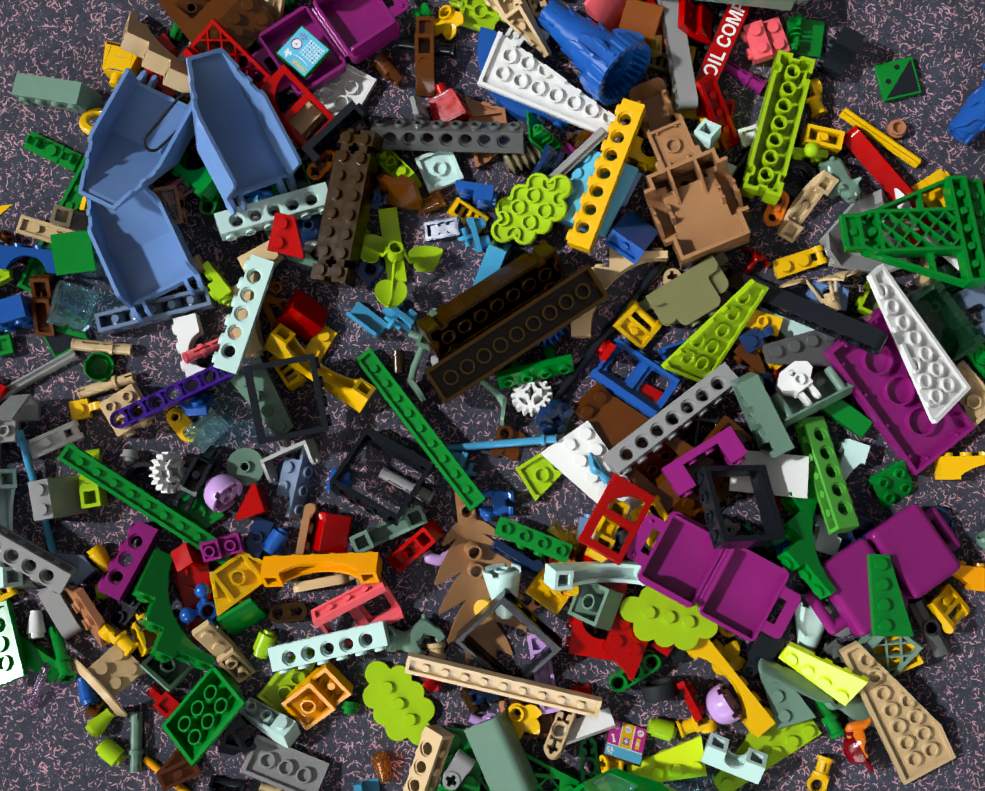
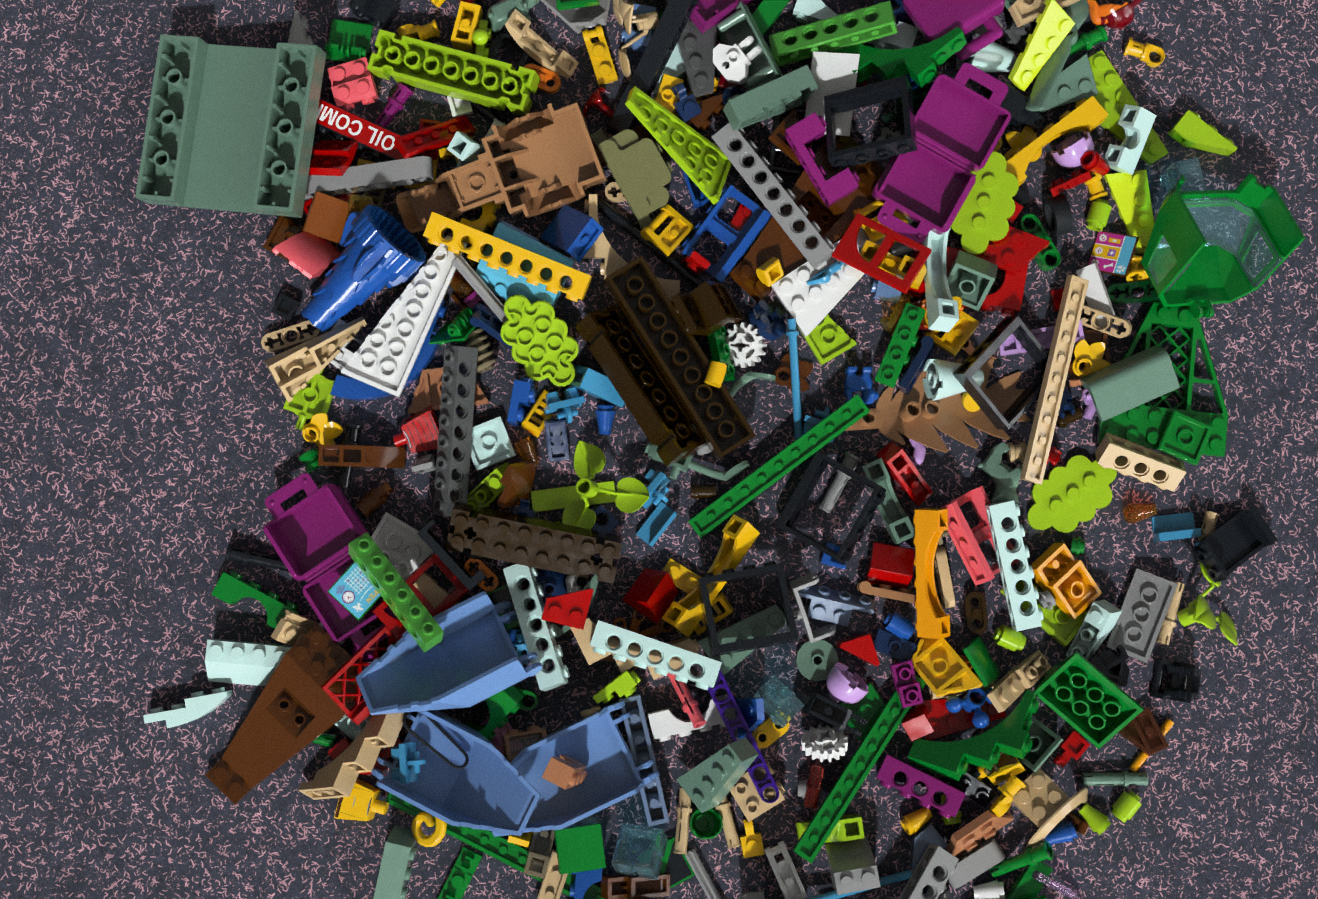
camera: 90 degrees left, 0 degrees up
(129, 462) = (814, 786): none -> clear red axle
(136, 373) = (716, 776): none -> sand green wedge
(137, 235) = (565, 771): none -> nougat arch
(149, 99) = (409, 762): none -> dark azure hips
(298, 81) = (395, 592): none -> bright green brick
(298, 677) = (1046, 600): none -> light grey plate
(459, 767) = (1141, 427): light grey piece -> none
(463, 272) = (605, 416): none -> blue cone
(500, 366) = (715, 374): none -> yellow brick
(562, 358) = (706, 308): none -> dark brown bracket
(599, 419) = (770, 271): none -> yellow brick
(710, 723) = (1094, 162): none -> red cone

